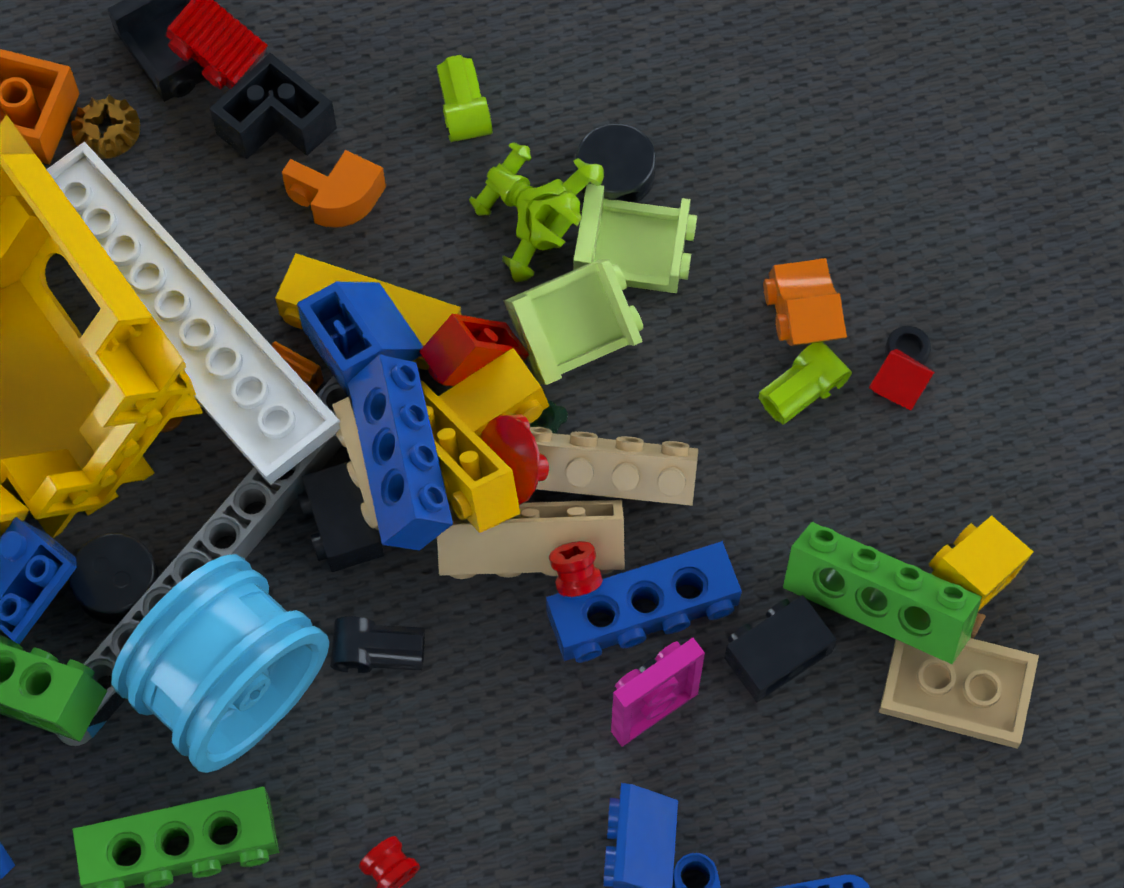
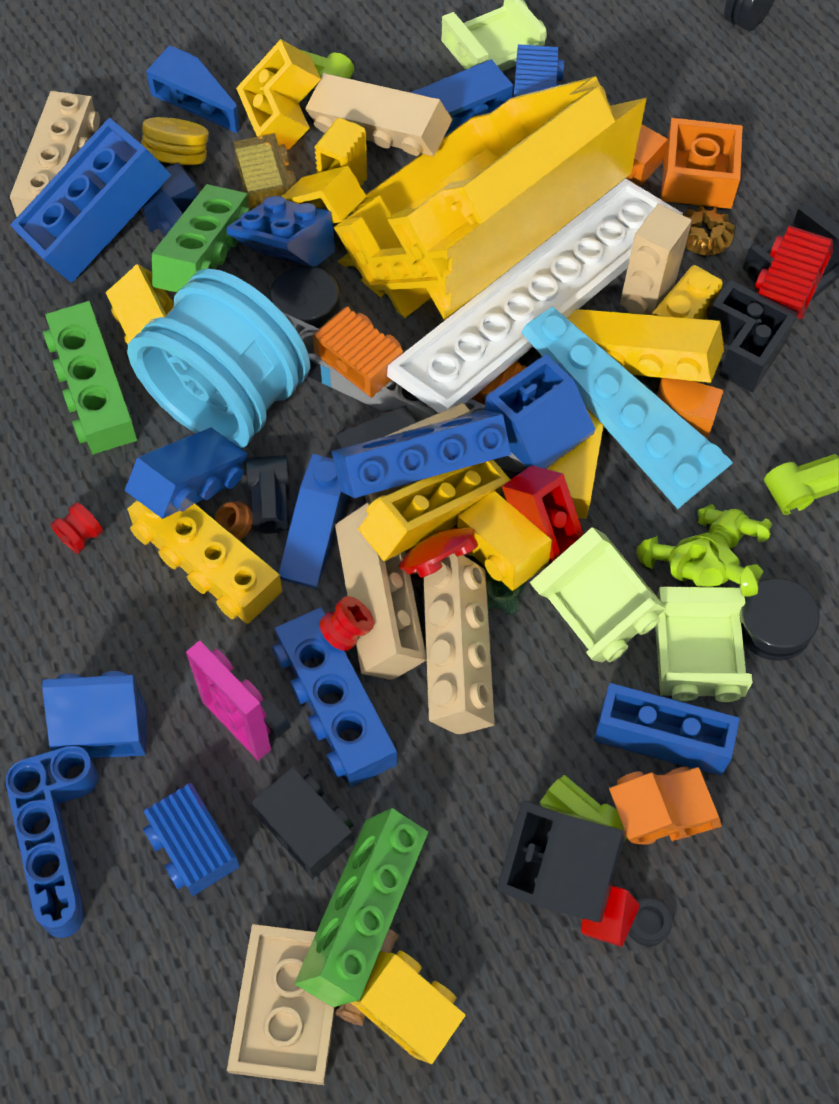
camera: 80 degrees right, 5 degrees down
(101, 765) = (137, 301): none -> yellow brick
(173, 177) = (654, 260): none -> tan brick
(221, 168) = (691, 295): none -> yellow brick
(229, 510) = (357, 350): none -> orange brick
(275, 217) = (655, 344): none -> yellow brick
(358, 720) = (186, 472): none -> blue brick
(366, 240) = (645, 426): none -> medium azure wing
(409, 701) = (235, 518): none -> dark orange plate
(425, 597) = (313, 523): none -> blue slope
(444, 723) = (210, 557): none -> yellow brick
(727, 288) = (666, 729): none -> blue brick
(785, 763) = (190, 839): none -> blue brick
(857, 402) = (561, 861): none -> black slope

